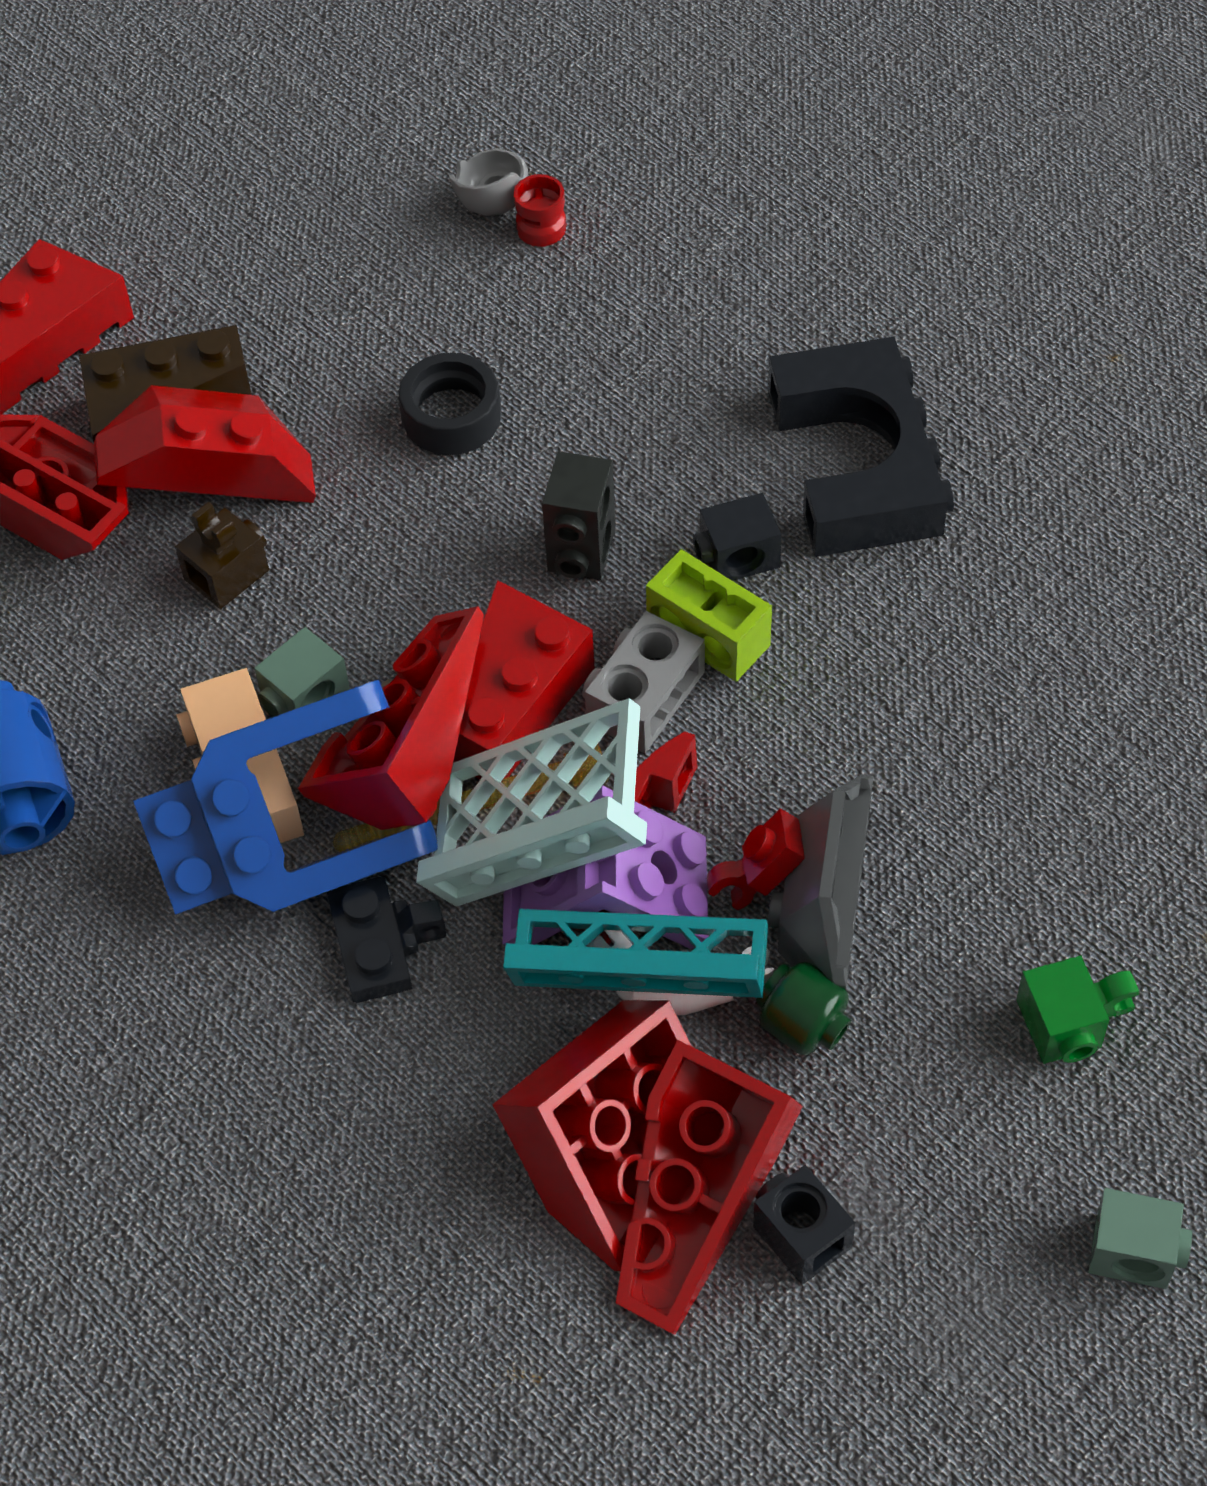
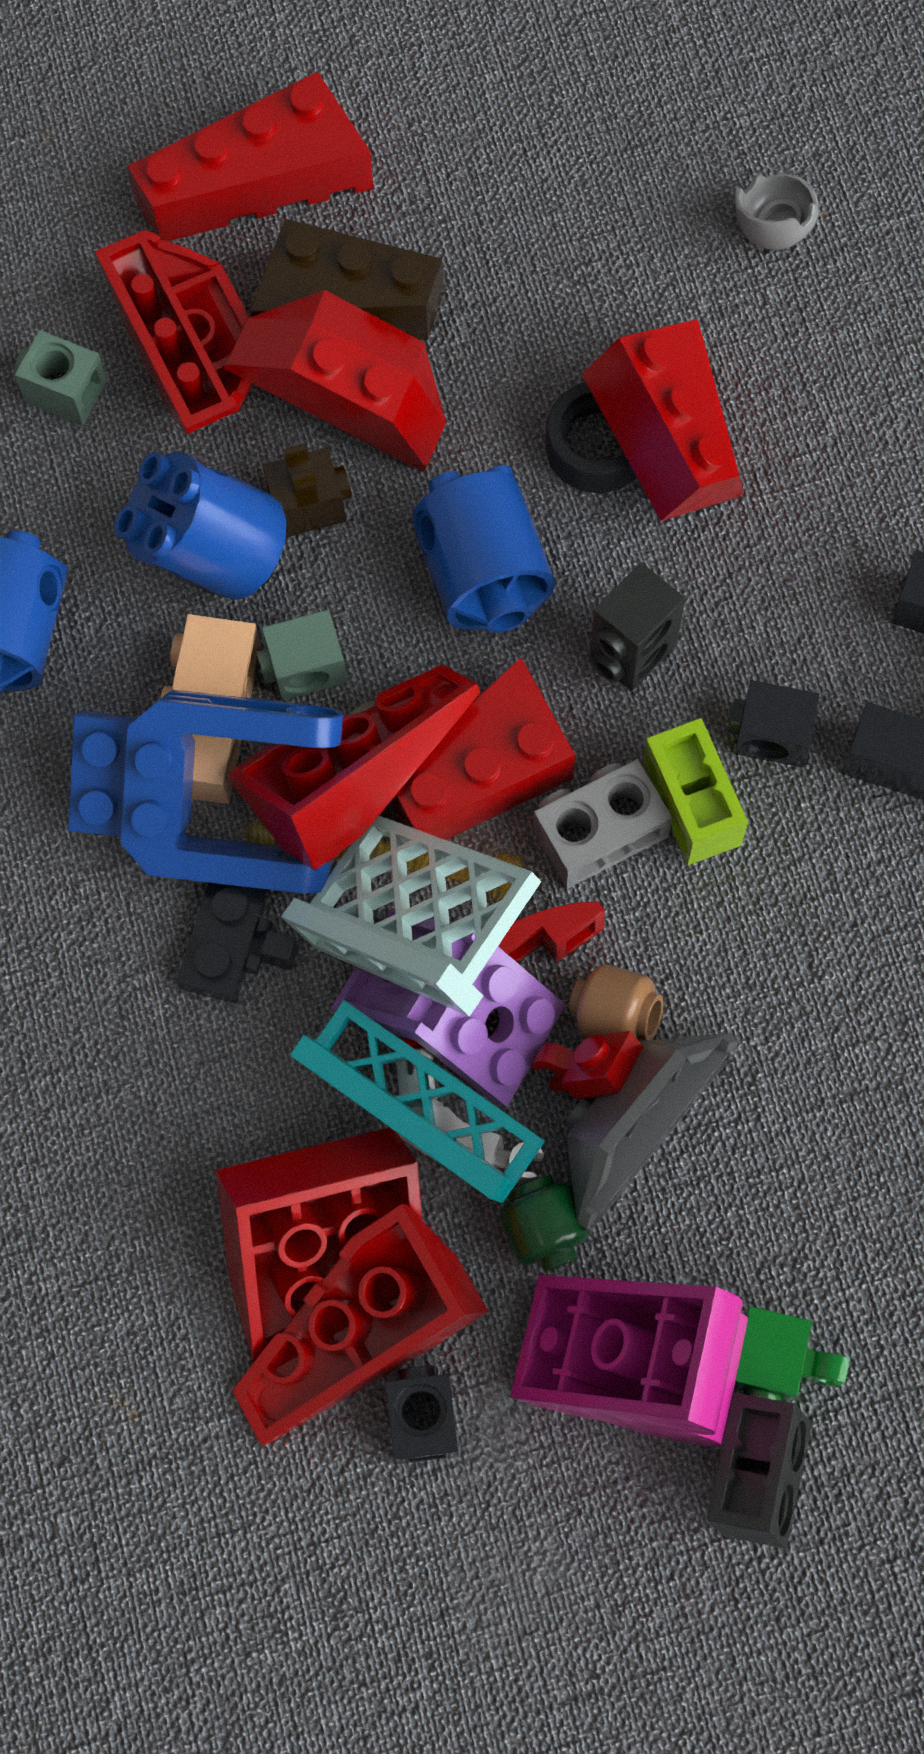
camera: 30 degrees right, 15 degrees up
(154, 608) = (202, 525): none -> blue cylinder
(410, 521) = (482, 550): none -> blue cylinder
(506, 351) = (667, 417): none -> red wedge
(540, 210) = (804, 267): red wheel -> none
(745, 804) = (616, 1002): none -> medium nougat head
(957, 1057) = (634, 1355): none -> dark pink brick
(1118, 1098) = (759, 1470): none -> pearl dark grey brick
(1139, 1239) = (699, 1604): sand green brick -> none

